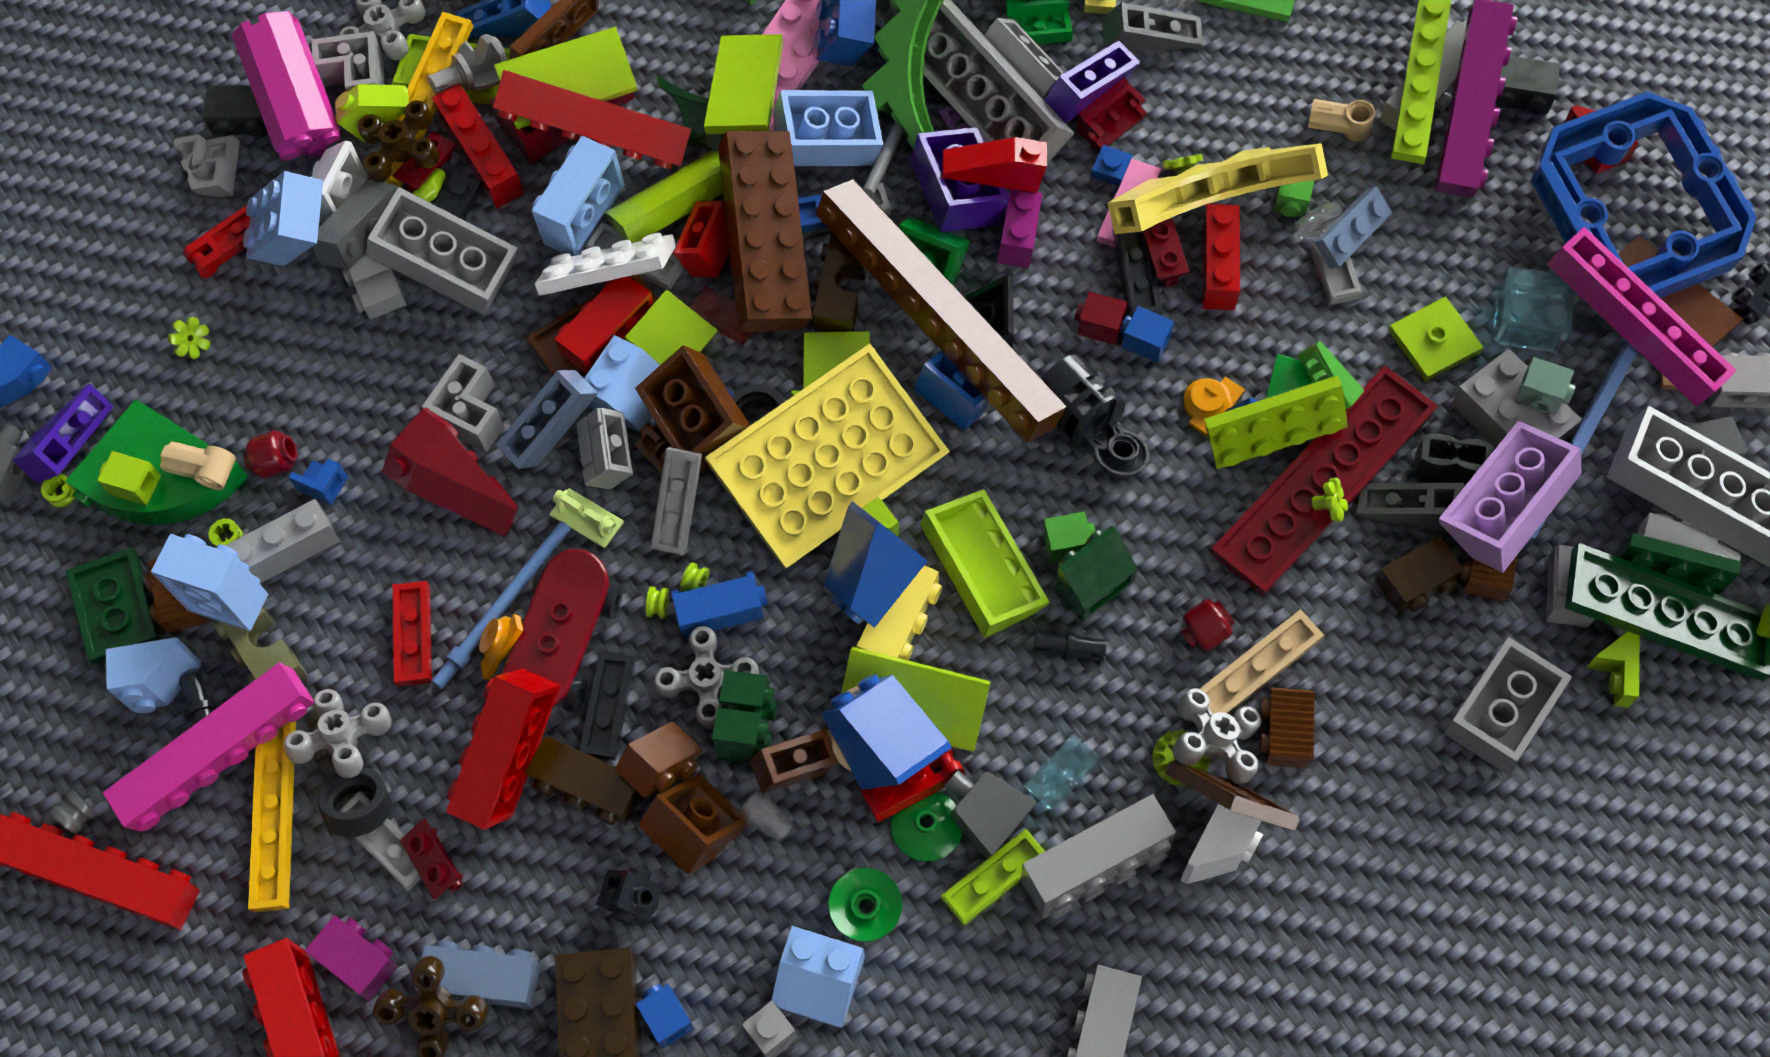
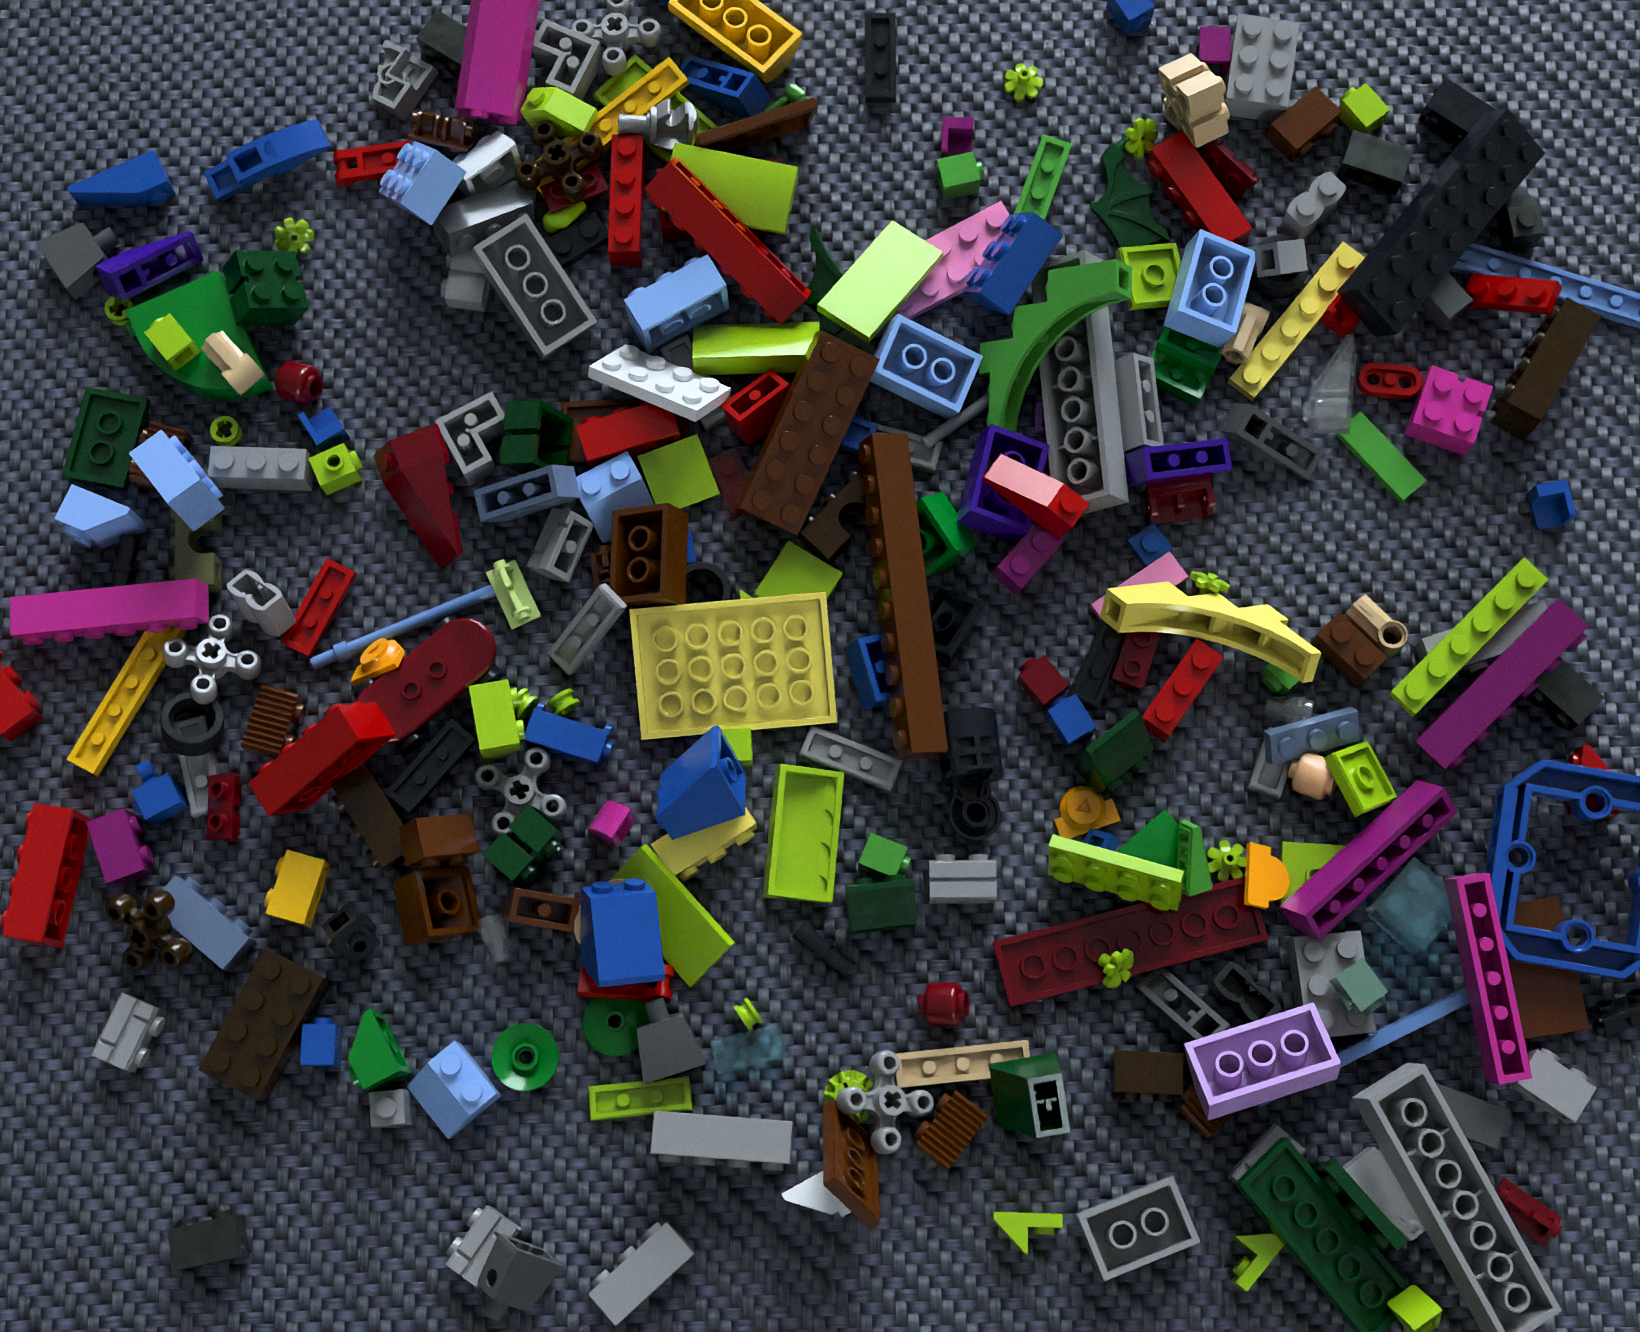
camera: 30 degrees right, 10 degrees up
(119, 286) = (266, 156): none -> blue slope
(189, 388) = (270, 288): none -> dark green piece
(257, 178) = (453, 133): none -> reddish brown hinge
(352, 505) = (336, 468): none -> lime brick
(355, 654) = (261, 603): none -> light grey brick
(361, 888) = (159, 796): none -> blue brick
(432, 755) = (273, 721): none -> reddish brown brick
(518, 366) = (532, 427): none -> dark green piece
(550, 888) = (297, 888): none -> yellow brick
(643, 624) = (495, 719): none -> lime slope
(727, 987) = (376, 1055): none -> green slope
(809, 646) = (612, 823): none -> dark pink slope
(989, 473) = (851, 758): none -> light grey tile
(1042, 741) = (748, 1014): none -> lime bush
(1150, 514) = (962, 880): none -> light grey brick
(1206, 334) = (1115, 754): none -> dark green slope
(1338, 650) = (1030, 1096): none -> dark green slope
(1342, 145) = (1348, 650): none -> reddish brown brick
(1359, 366) = (1221, 863): none -> lime plant
(1377, 258) = (1312, 776): none -> light nougat head
(1398, 357) = (1264, 877): none -> light orange piece
(1405, 770) = (1016, 1225): none -> lime slope
(1417, 236) = (1361, 778): none -> lime plate
(1472, 292) = (1368, 859): none -> magenta brick

